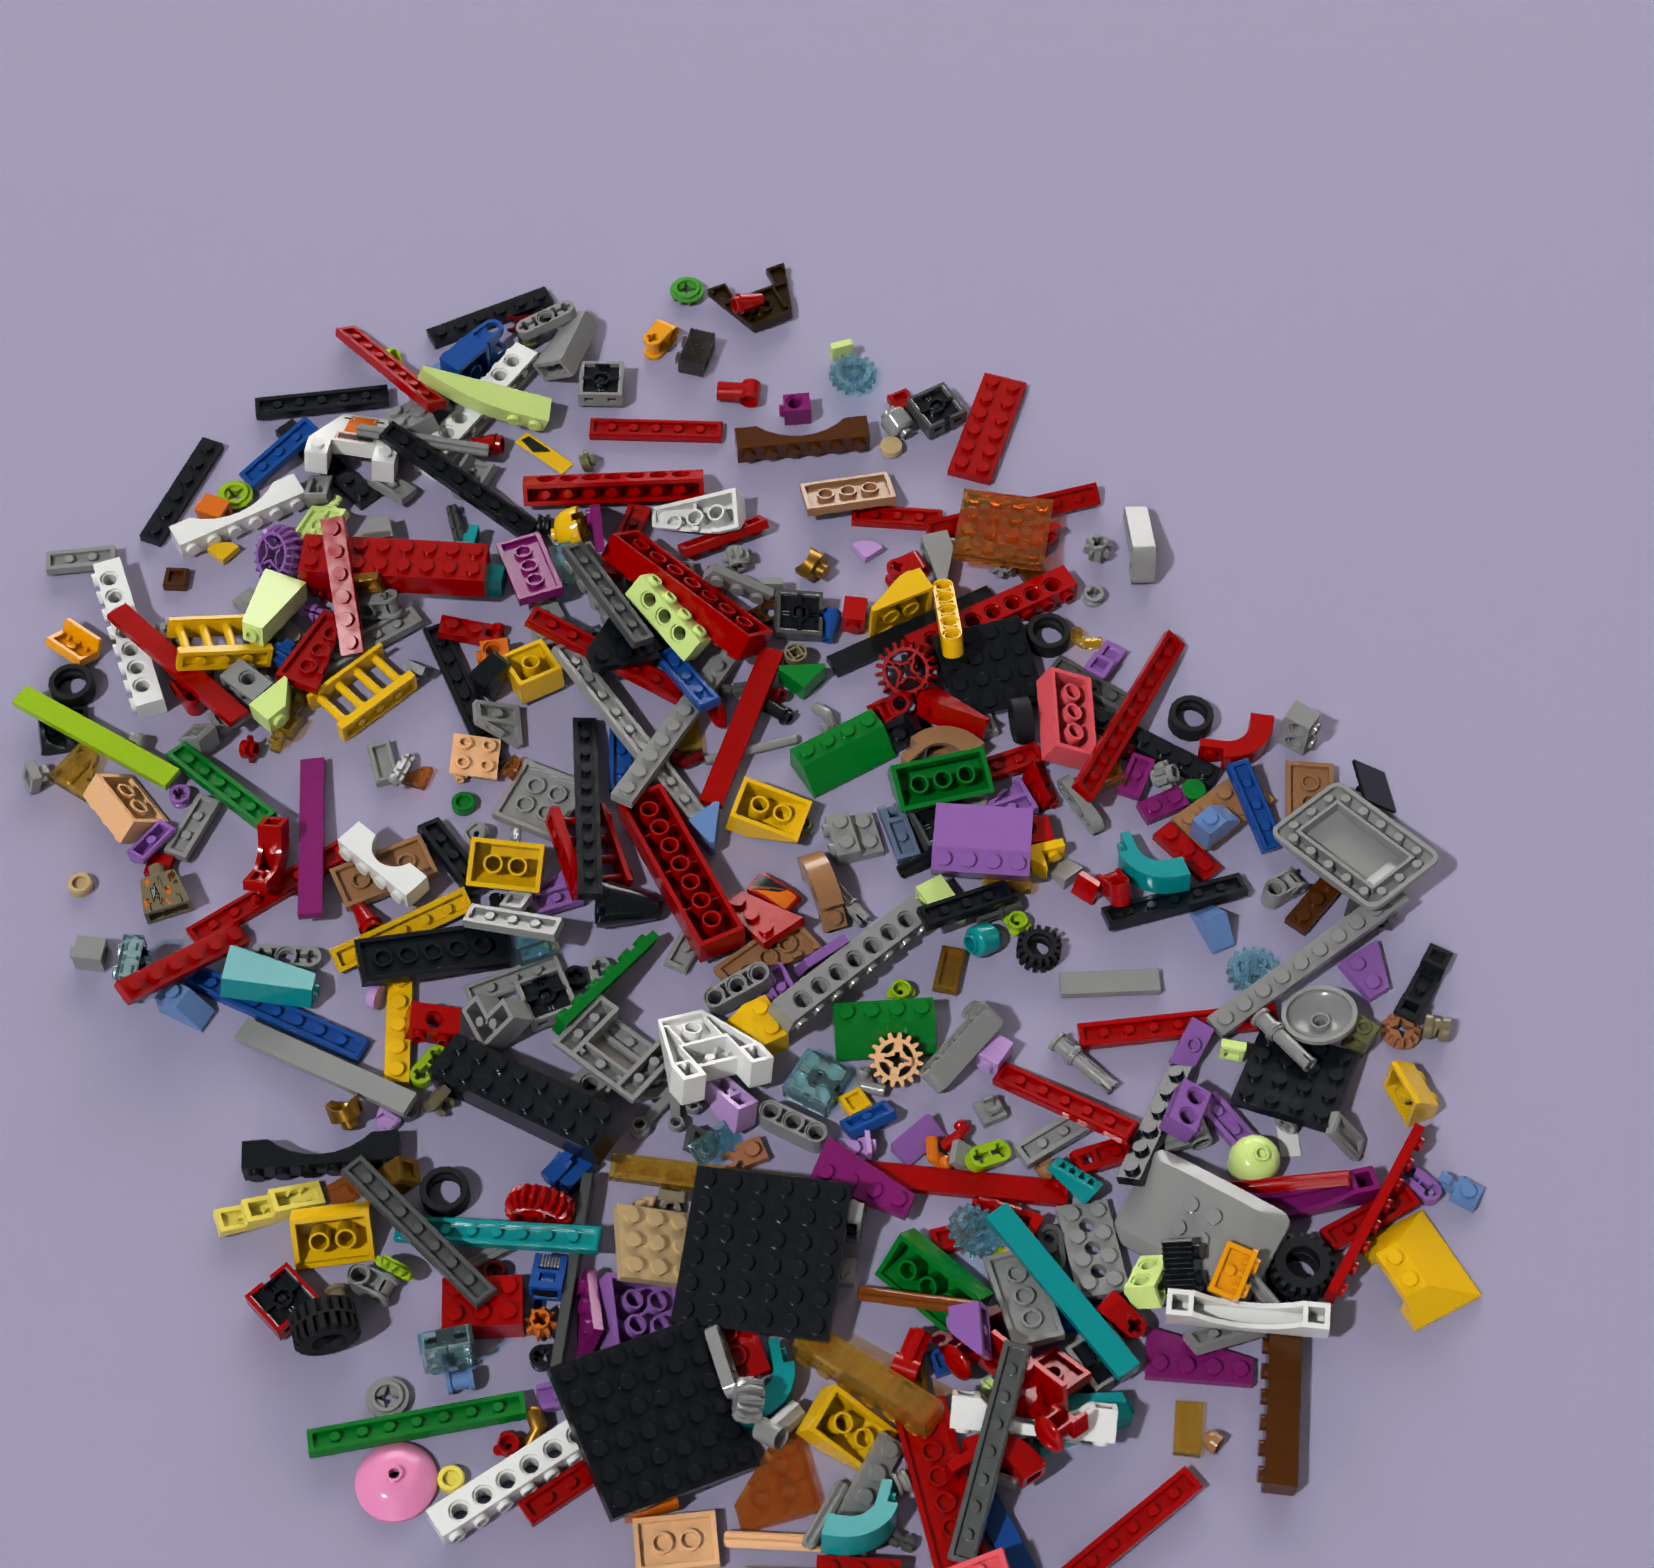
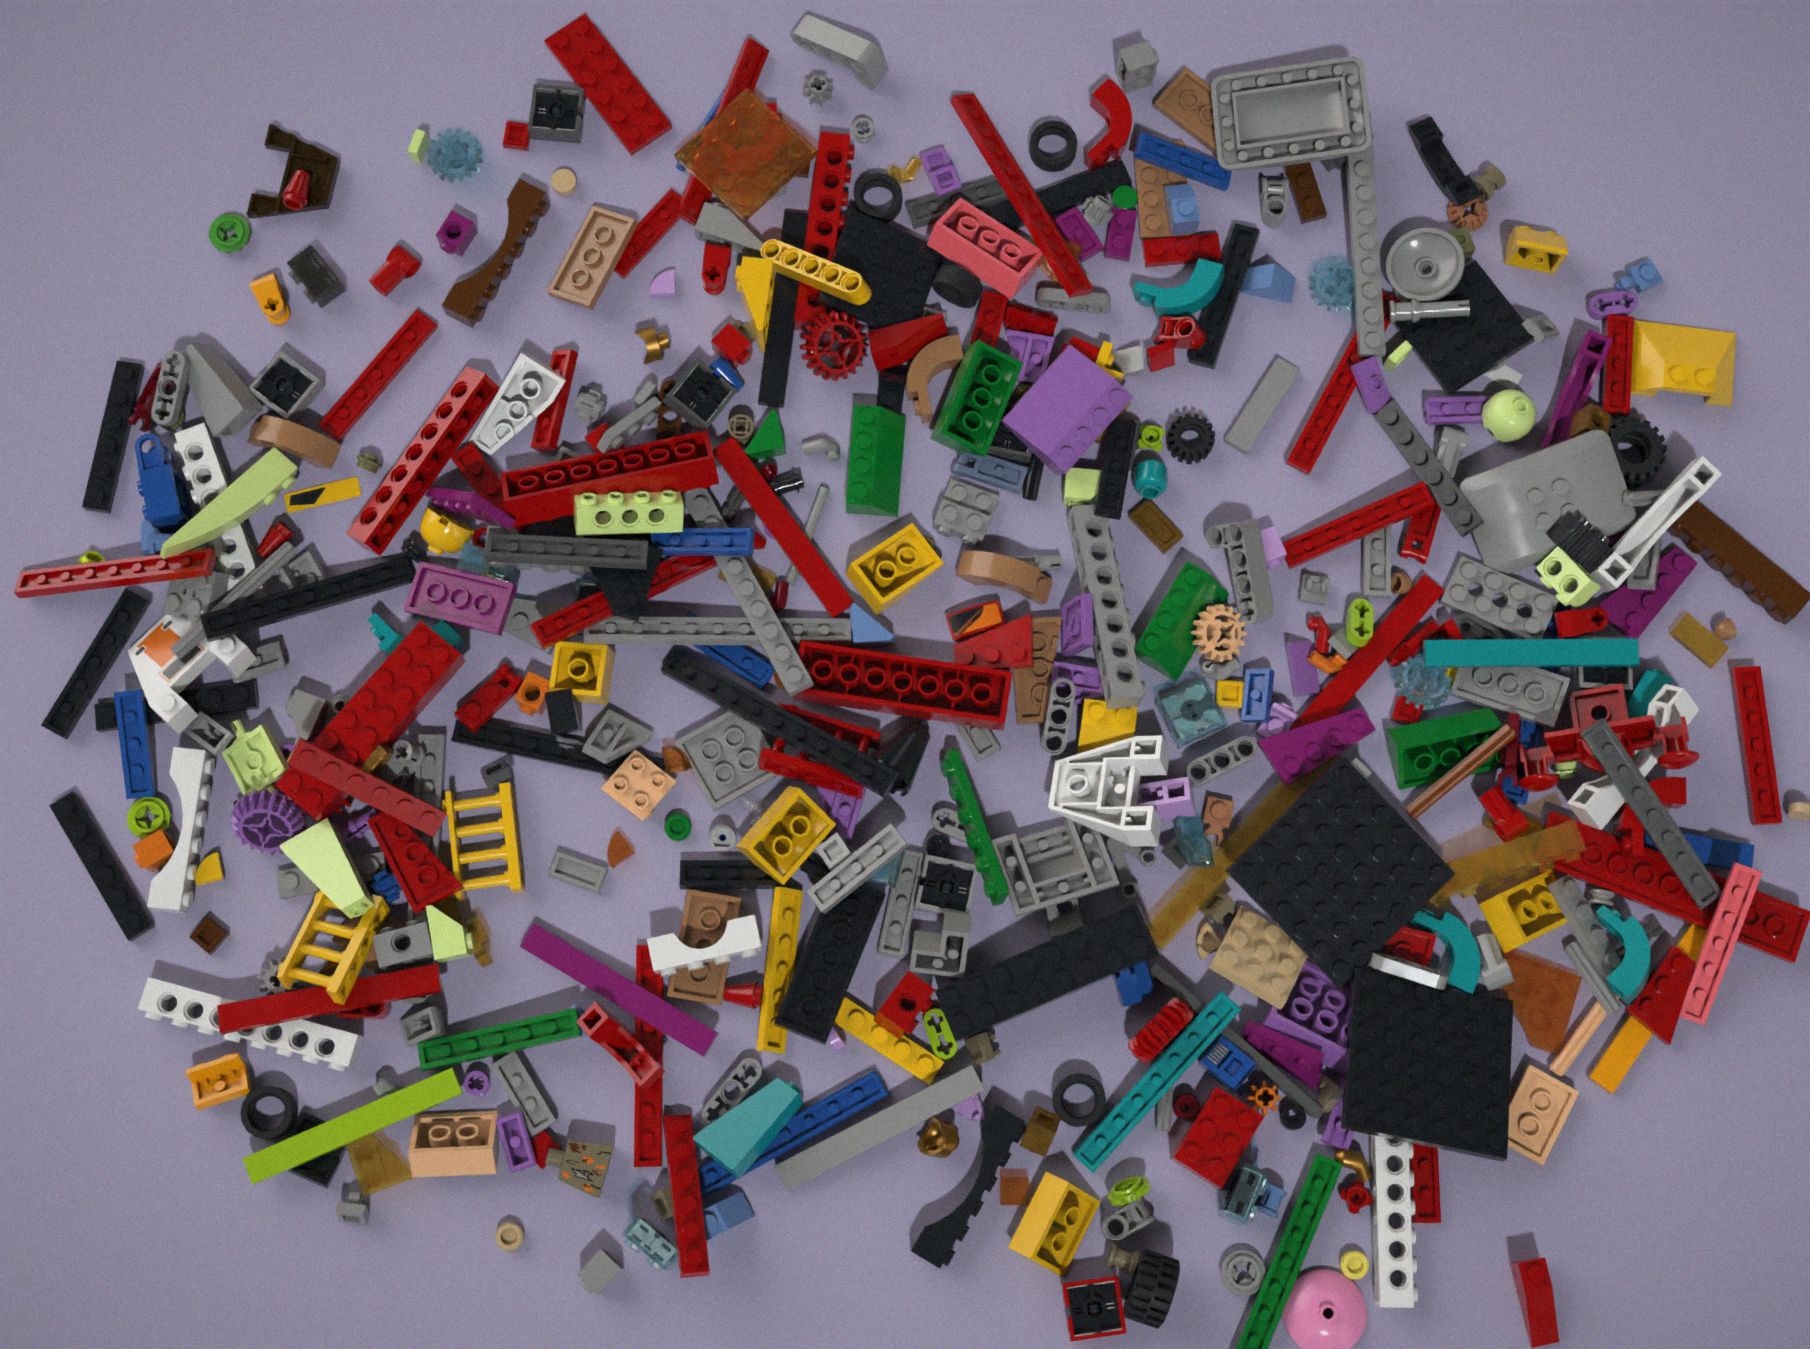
camera: 55 degrees left, 20 degrees up
(77, 559) = (114, 1015): light grey plate -> none
(249, 749) = (472, 986): red plate -> none
(268, 1208) = (987, 1265): light yellow slope -> none
(401, 769) = (602, 860): light grey axle -> none
(419, 1232) = (1117, 1150): dark grey tile -> none
(455, 522) = (347, 631): dark grey axle -> none
(566, 410) = (294, 439): none -> medium nougat arch
(748, 1400) = (1470, 975): light grey gear -> none
(887, 708) = (860, 388): red piece -> none
(896, 422) = (543, 157): light grey head -> none
(900, 985) = (1154, 575): lime plate -> none
(971, 1326) = (1531, 752): medium lavender slope -> none
(1074, 1056) = (1313, 484): light grey pin -> none
(1075, 1180) = (1433, 568): teal slope -> none
(1185, 1111) = (1442, 436): medium lavender brick -> none
(1233, 1271) = (1621, 508): light orange bracket -> none
(1295, 1182) = (1553, 405): red axle -> none
(1304, 1217) = (1588, 419): none -> pearl gold brick
(1366, 971) = (1397, 195): medium lavender wing -> none
(1372, 1222) = (1625, 358): red plate -> none
(1373, 786) = (1232, 53): black piece -> none

